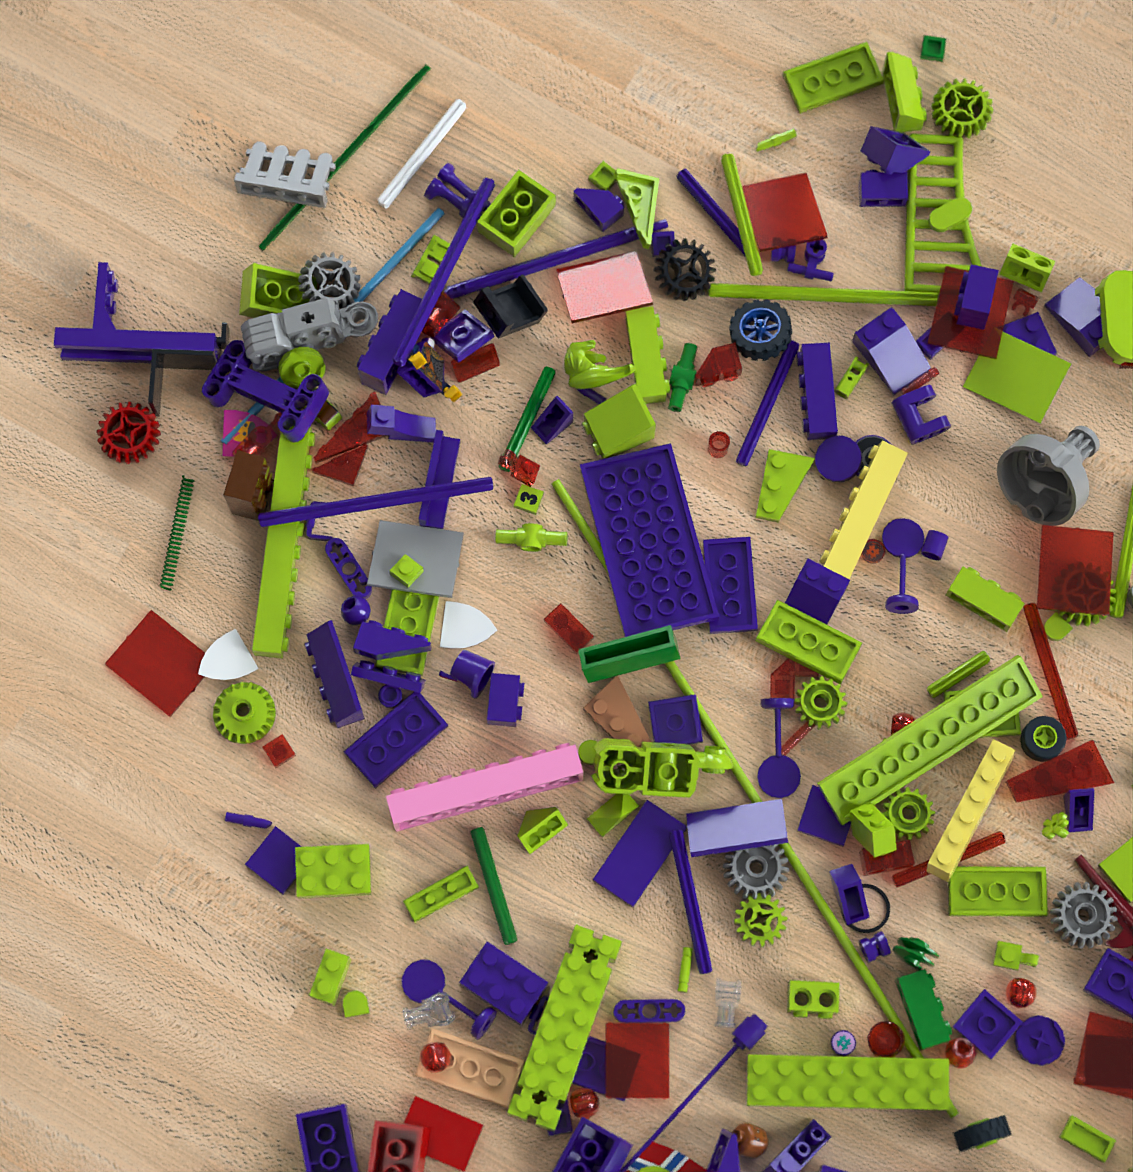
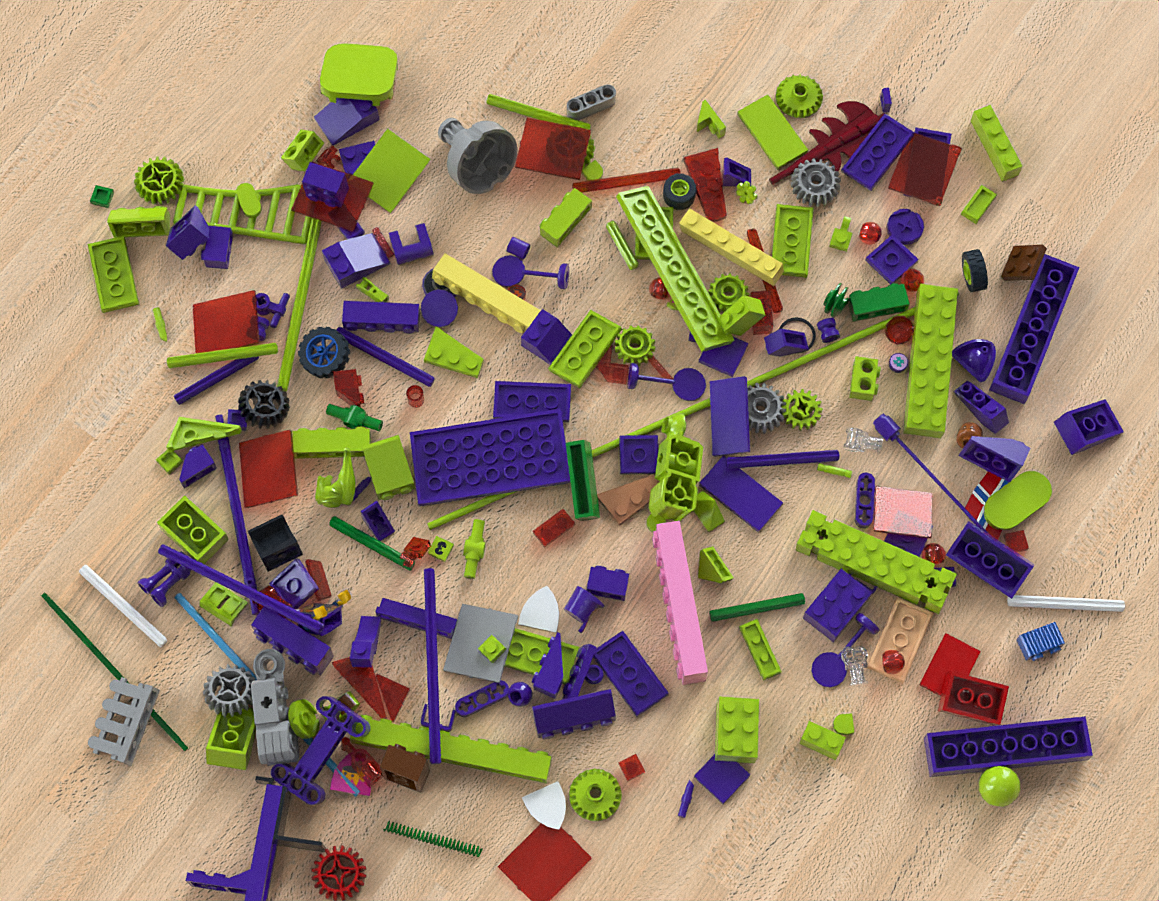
camera: 85 degrees left, 5 degrees down
(861, 1144) = (976, 357): none -> dark purple hat

